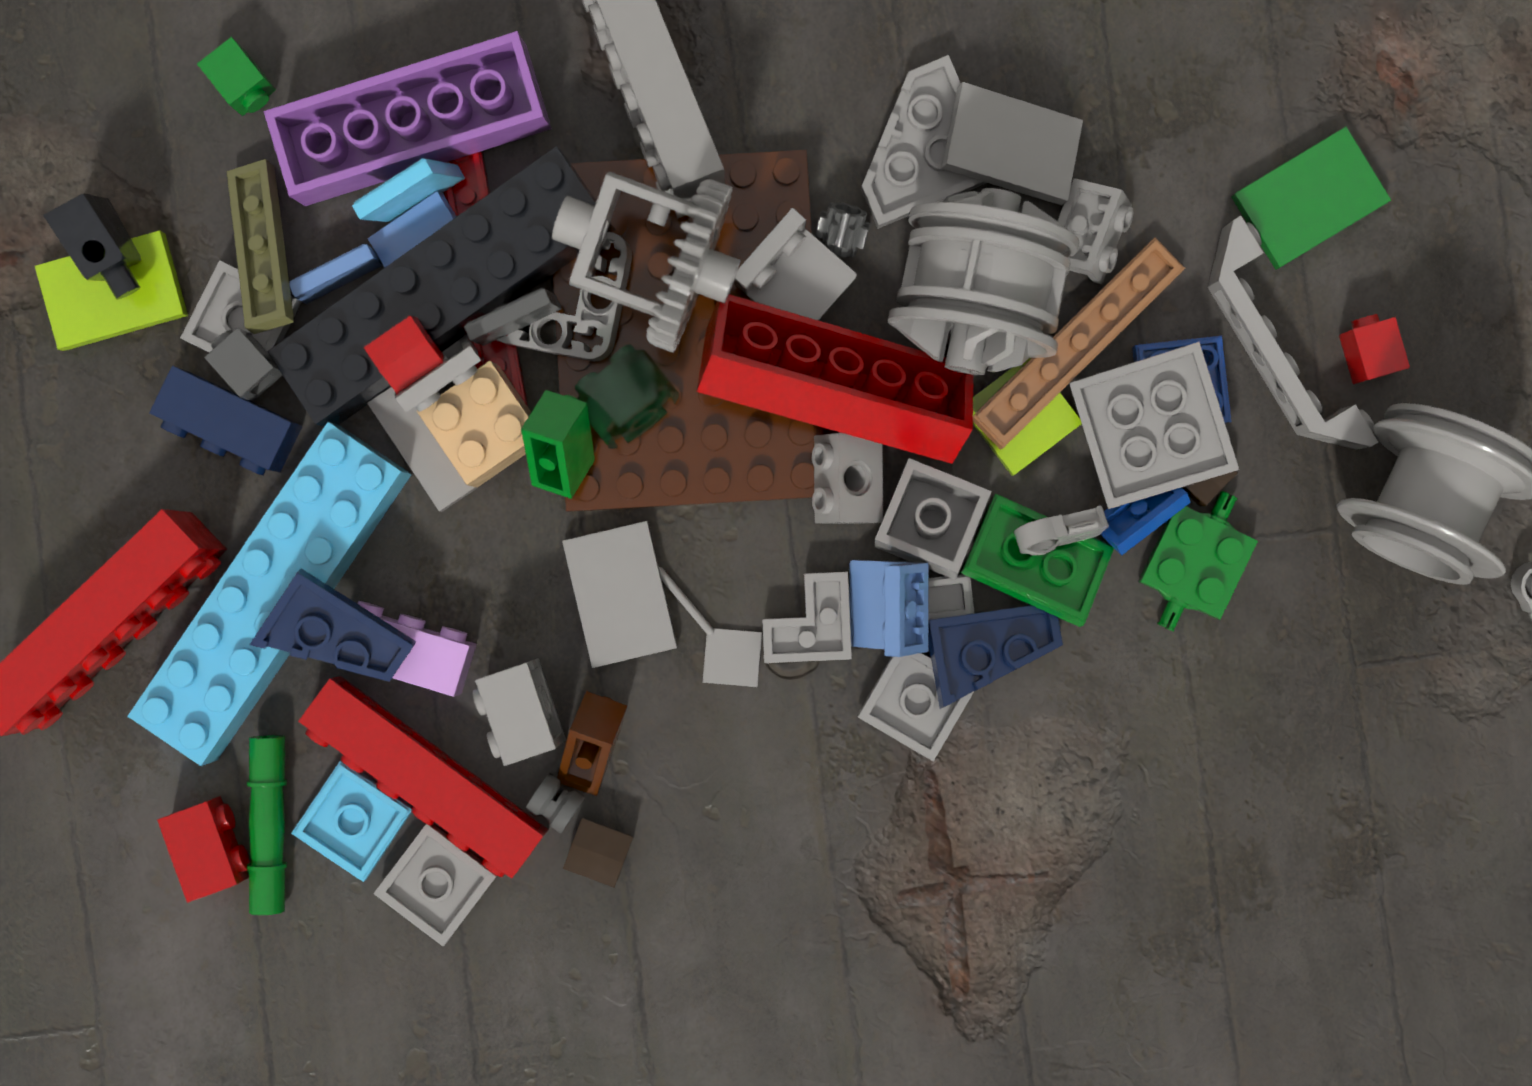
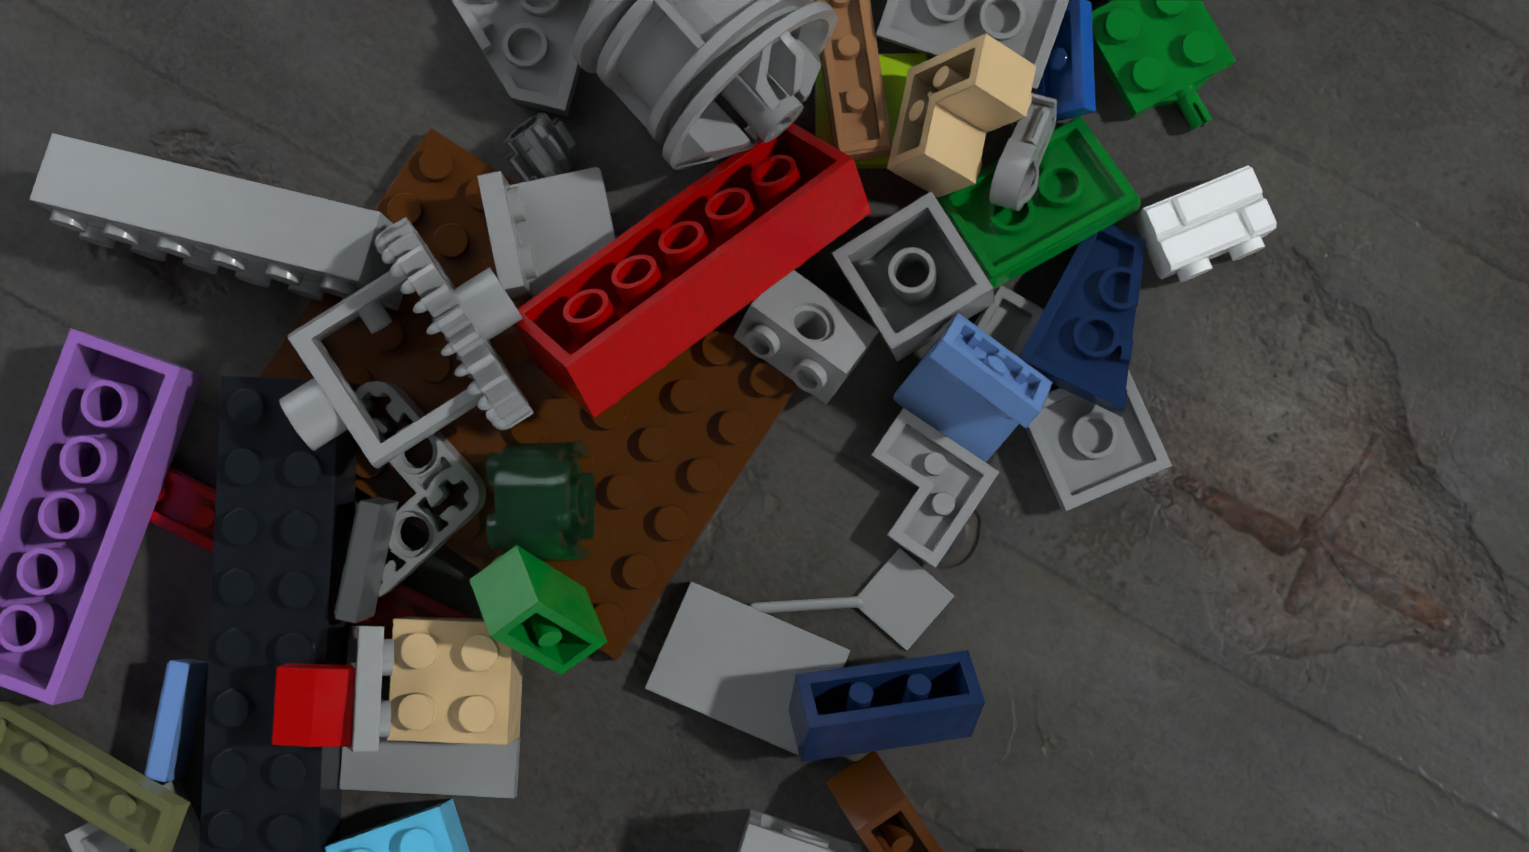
camera: 55 degrees left, 5 degrees down
(407, 190) = (147, 572): medium azure tile -> none
(411, 228) = (190, 600): medium blue tile -> none
(657, 692) = (885, 705): none -> dark blue brick
(1053, 465) = (951, 108): none -> tan brick
(1101, 674) = (1206, 223): none -> white brick

